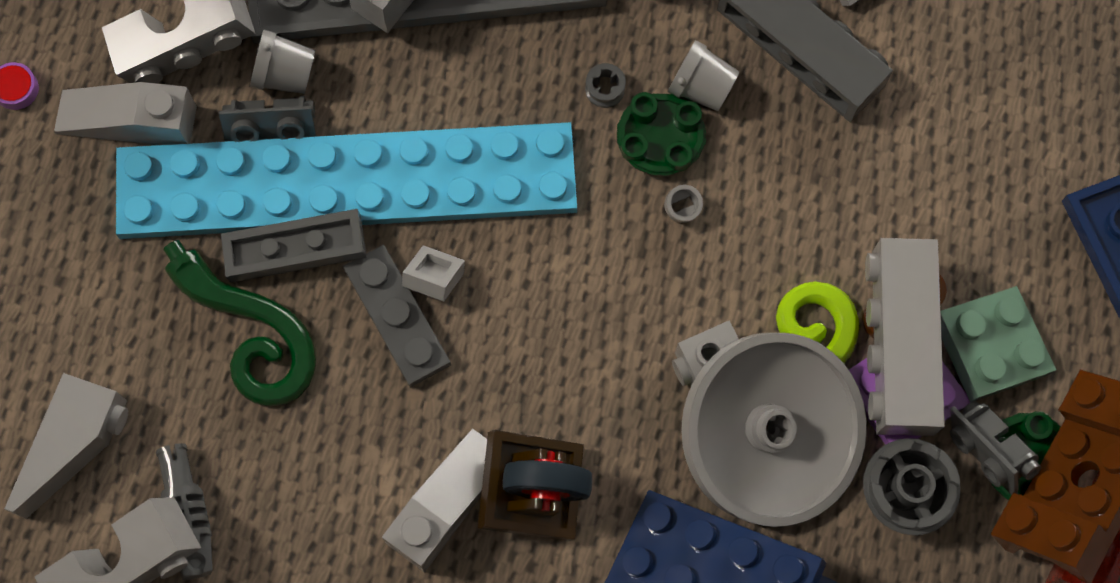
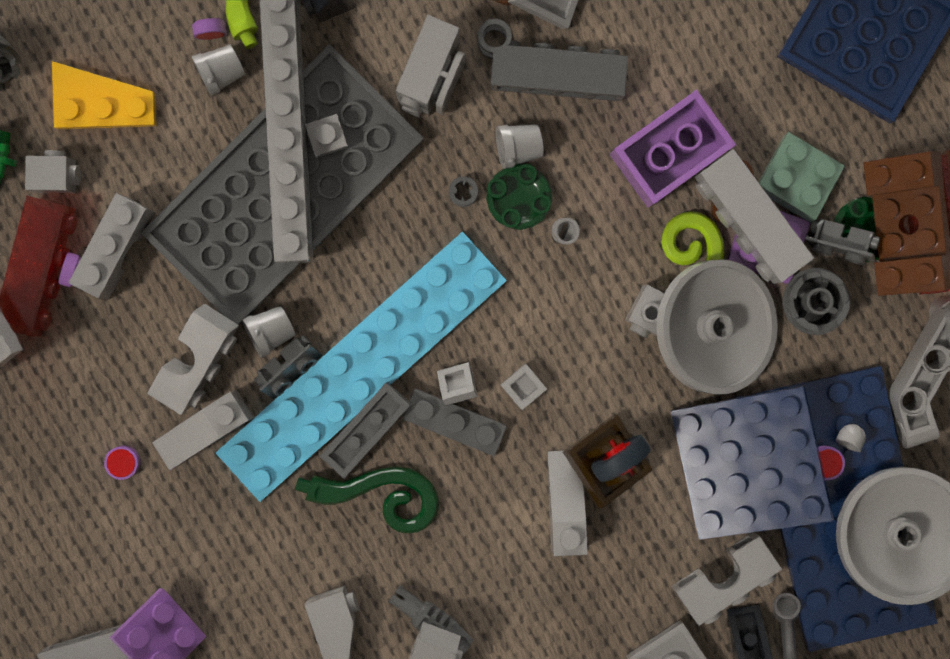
camera: 35 degrees left, 15 degrees up
(503, 333) = (523, 386): none -> light grey plate
(862, 195) = (672, 148): none -> medium lavender brick

